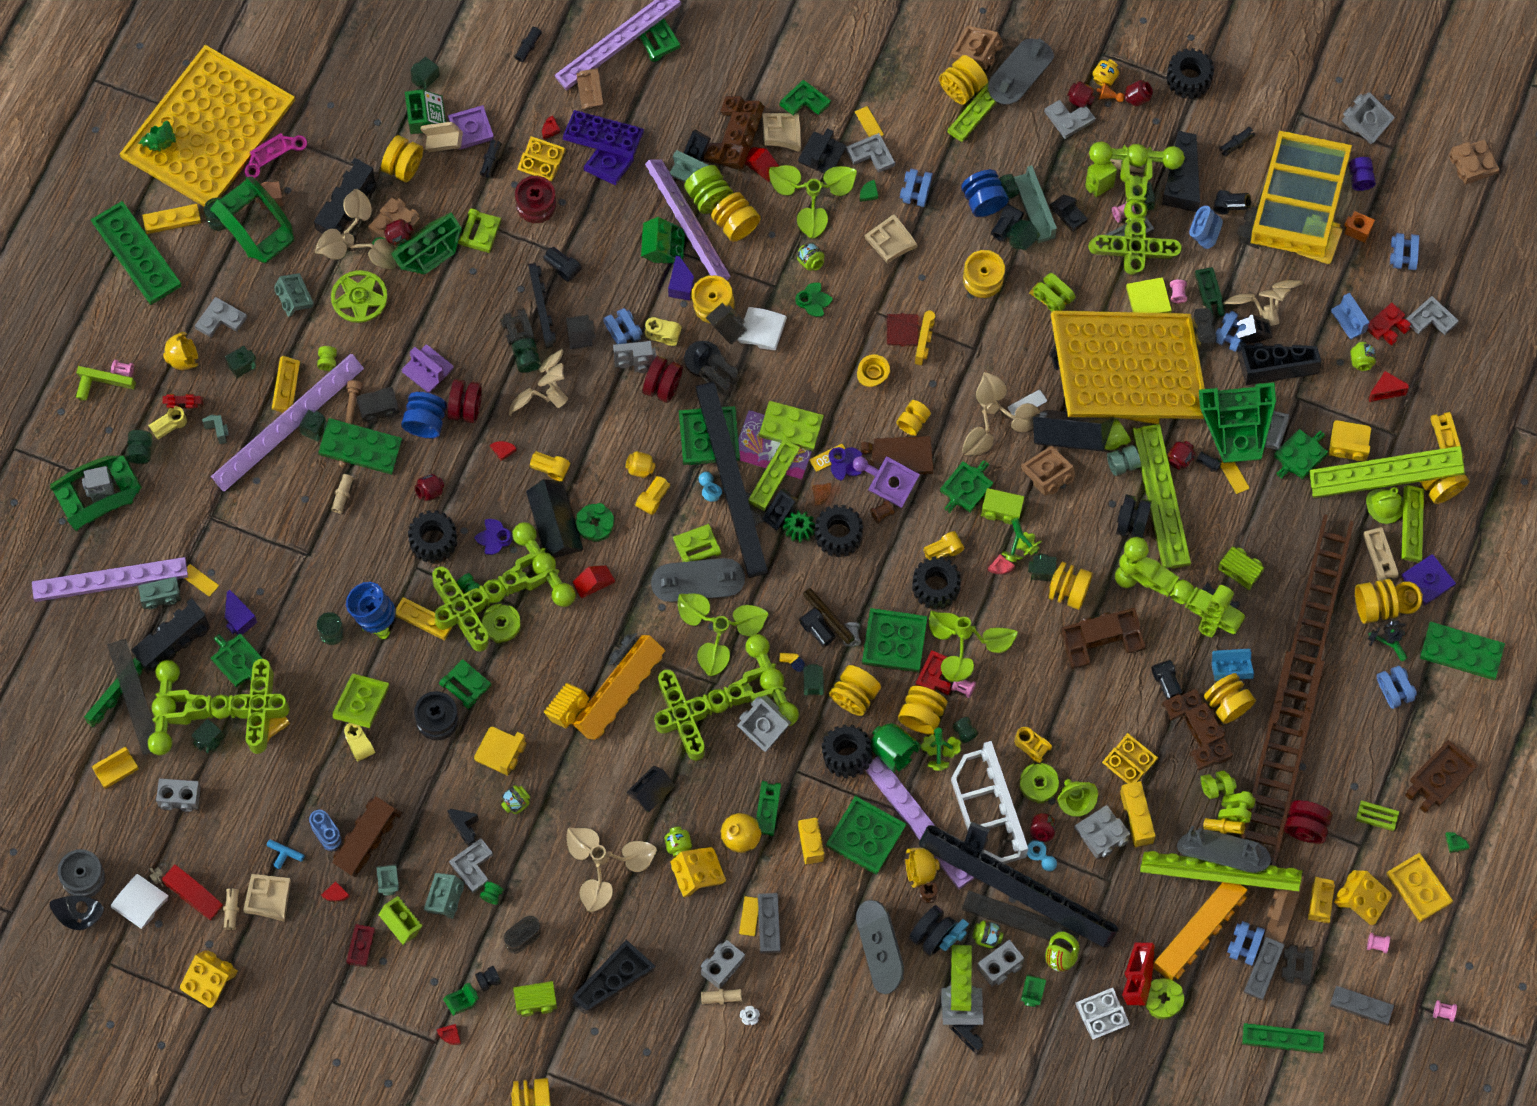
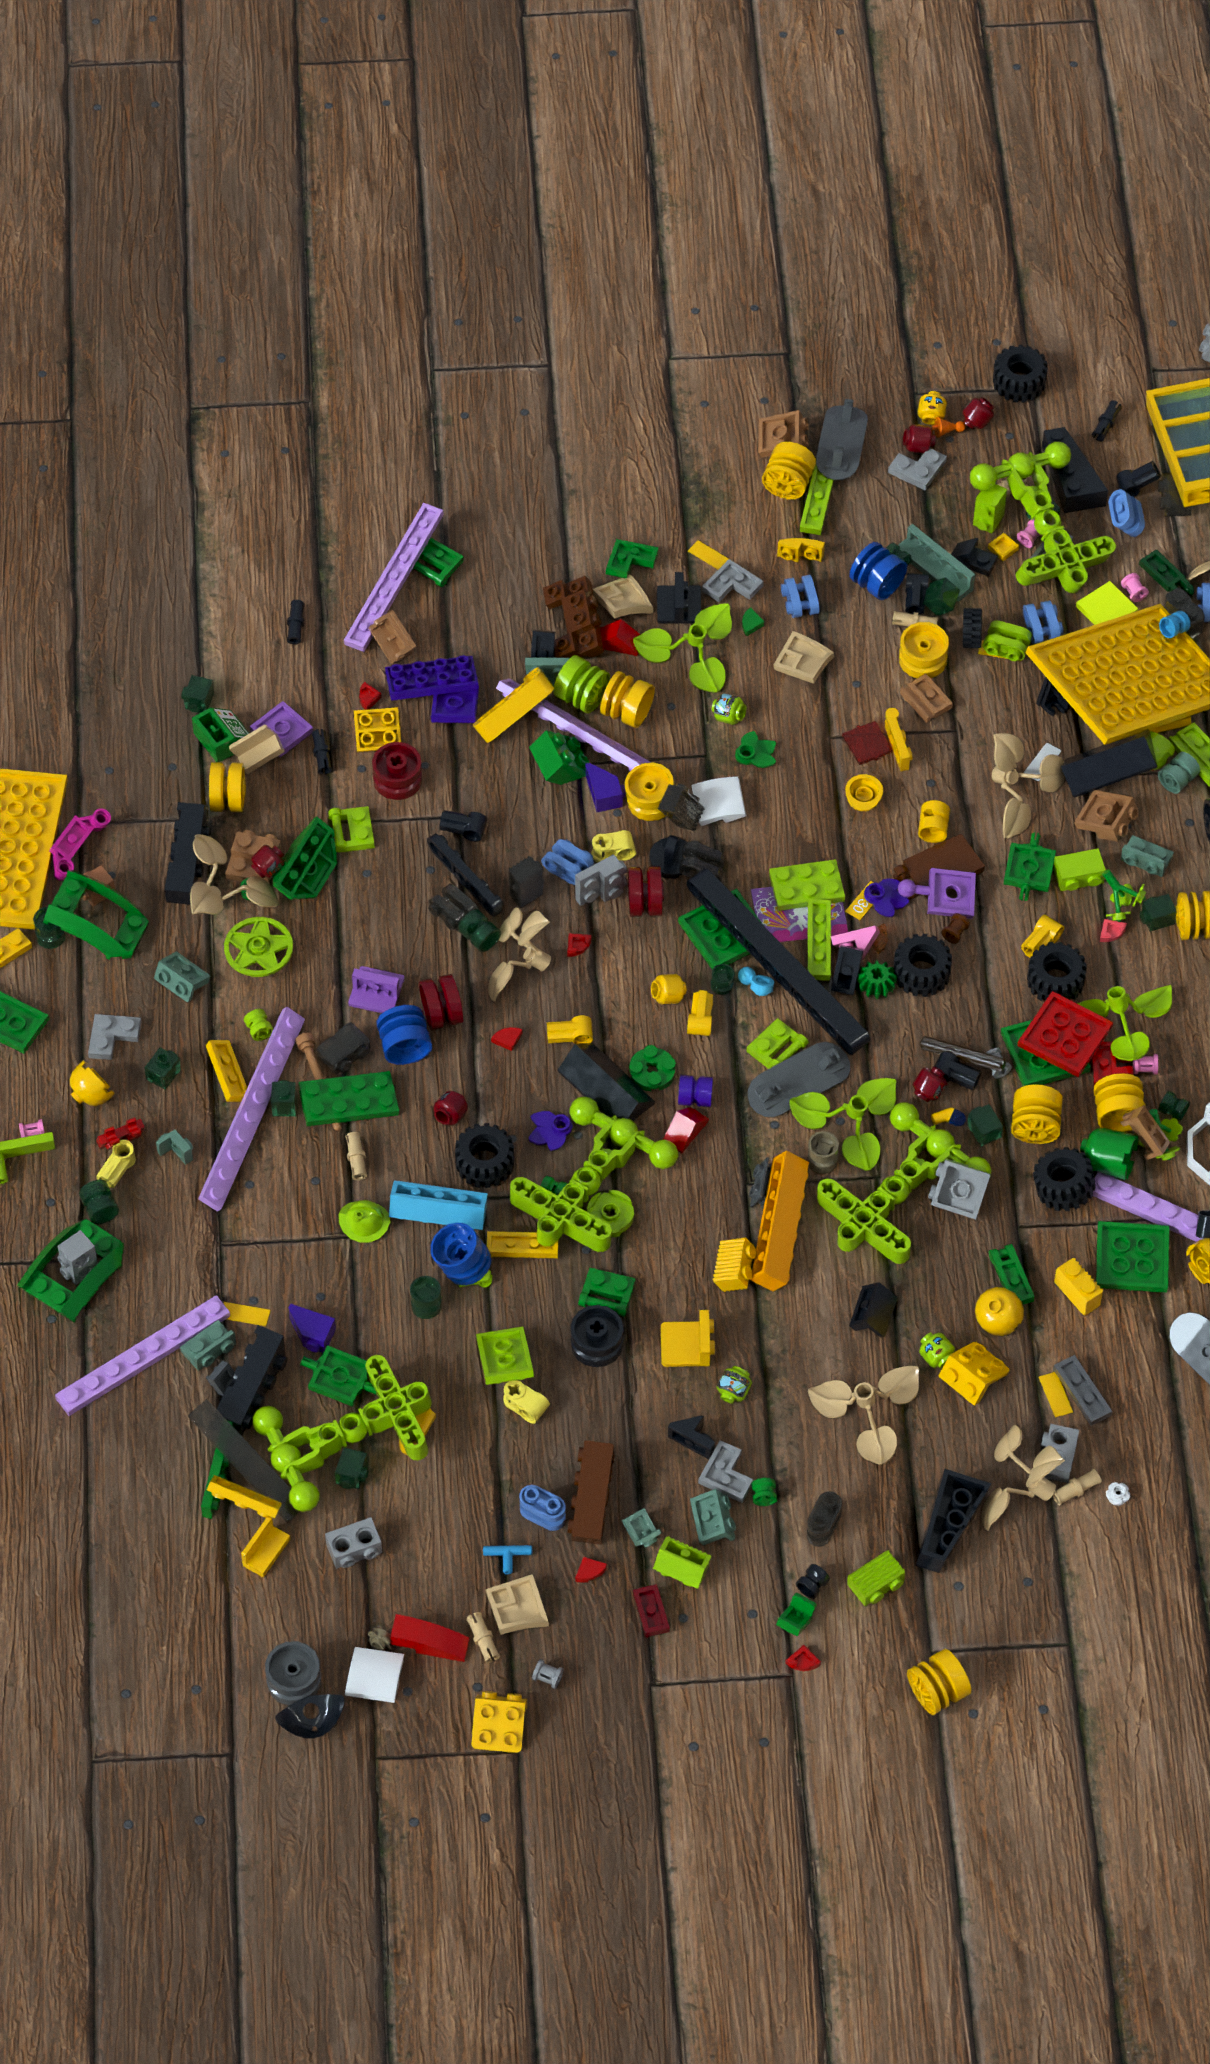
camera: 25 degrees left, 10 degrees down
(116, 724) = (244, 1497): none -> yellow plate
(152, 622) = (221, 1377): none -> dark grey tile
(261, 958) = (547, 1674): none -> light grey bush
(321, 546) = (363, 1220): none -> lime helmet
(377, 560) = (437, 1204): none -> medium azure brick
(595, 397) = (578, 944): none -> red tile
(613, 554) = (695, 1091): none -> dark purple wheel
(649, 185) = (514, 705): none -> yellow beam
(680, 647) = (823, 1152): none -> dark tan wheel
(684, 470) = (722, 979): none -> clear green wheel
(690, 979) = (1037, 1485): none -> tan plant
(790, 628) = (929, 1083): none -> dark red head
(803, 490) = (863, 938): none -> bright pink slope
(913, 635) = (1065, 1034): none -> red plate
(927, 743) = (1147, 1130): none -> medium nougat hinge
(934, 146) = (793, 548): none -> yellow slope
(966, 313) = (926, 698): none -> medium nougat plate
(993, 245) = (907, 619): none -> tan pin
(1030, 271) = (972, 627): none -> black tyre
(1062, 517) = (1146, 856): none -> sand green bracket
(1097, 212) = (1003, 547): none -> yellow tile
(1098, 282) = (1049, 614): none -> medium blue brick
(1187, 337) = (1178, 623): none -> dark azure wheel

